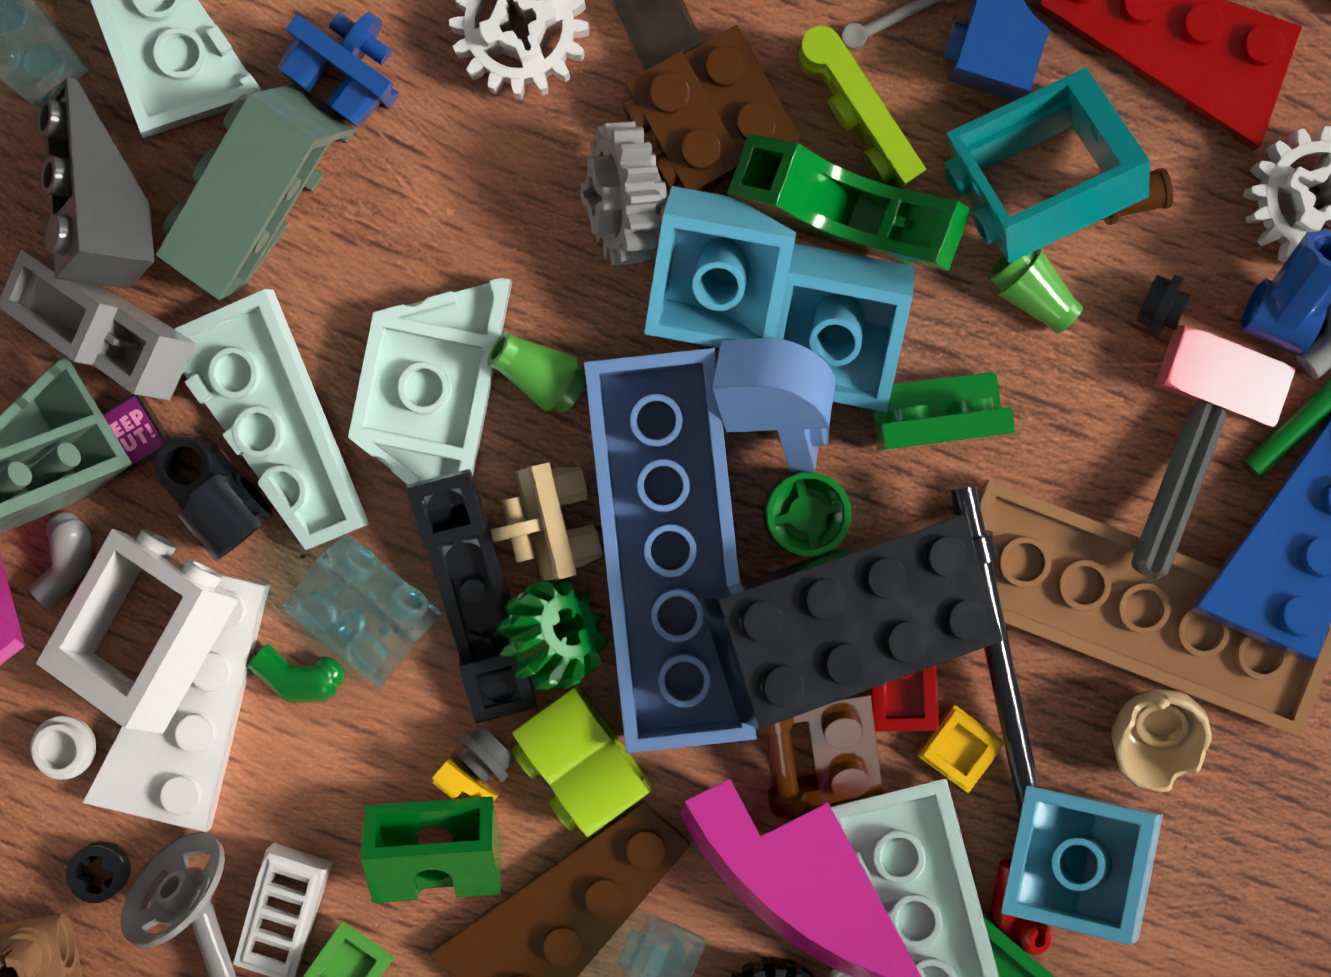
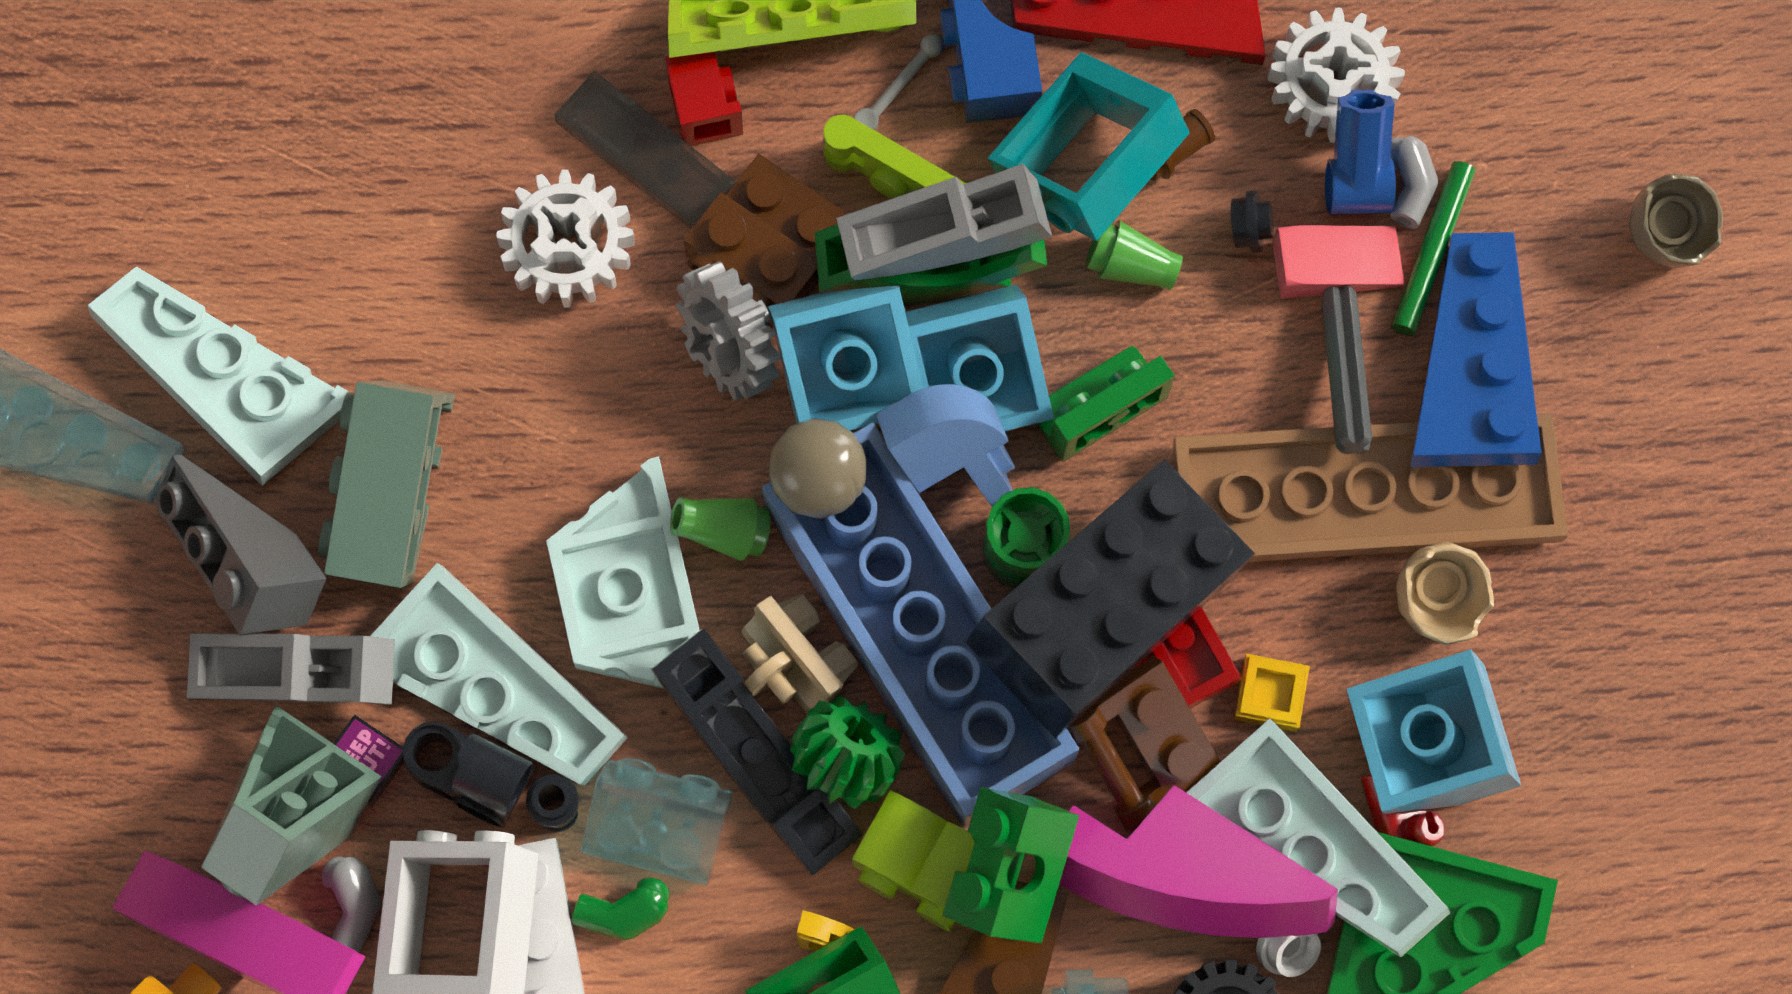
camera: 30 degrees left, 15 degrees down
(259, 565) = (547, 789): none -> black pin
(314, 51) = (423, 329): blue hips -> none
(484, 755) = (836, 897): dark grey plate -> none
(640, 371) = (817, 468): none -> dark tan hair
(654, 788) = (1003, 831): none -> green brick
(868, 193) = (945, 225): none -> light grey slope
(999, 655) = (1272, 597): black bar -> none

